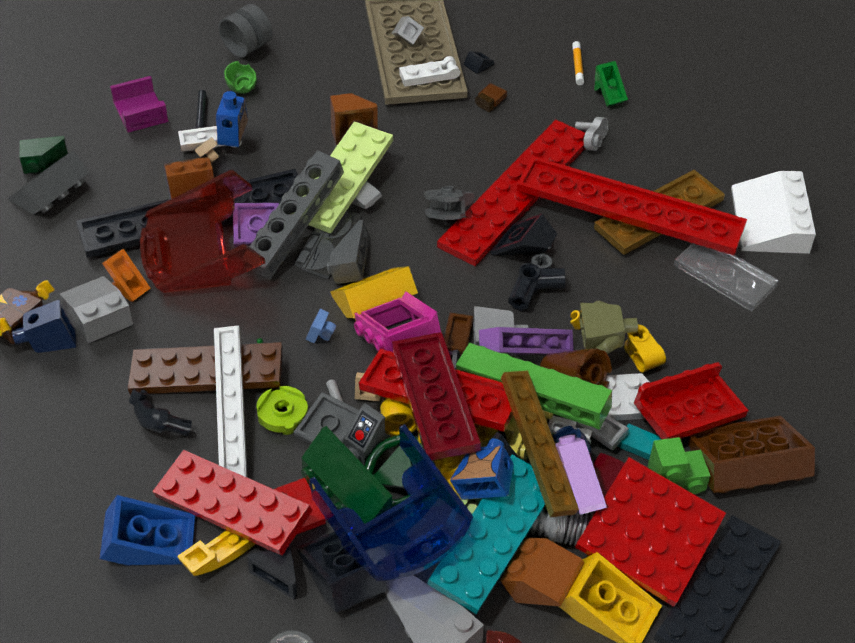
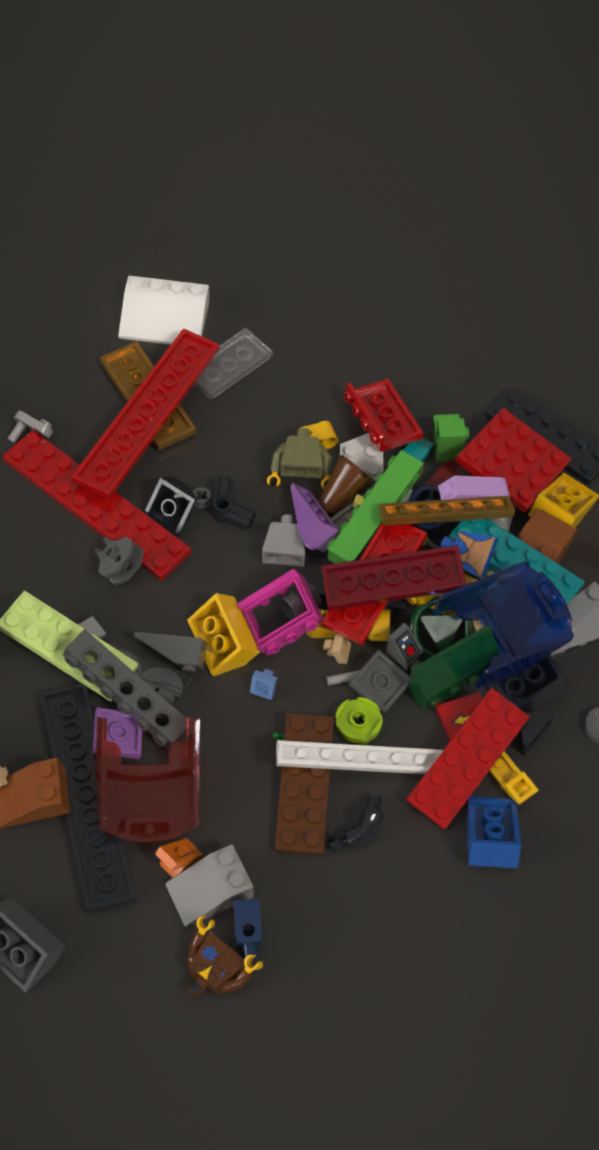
camera: 85 degrees left, 10 degrees up
(458, 332) = (270, 571): reddish brown tile -> none
(754, 454) = (429, 382): reddish brown slope -> none

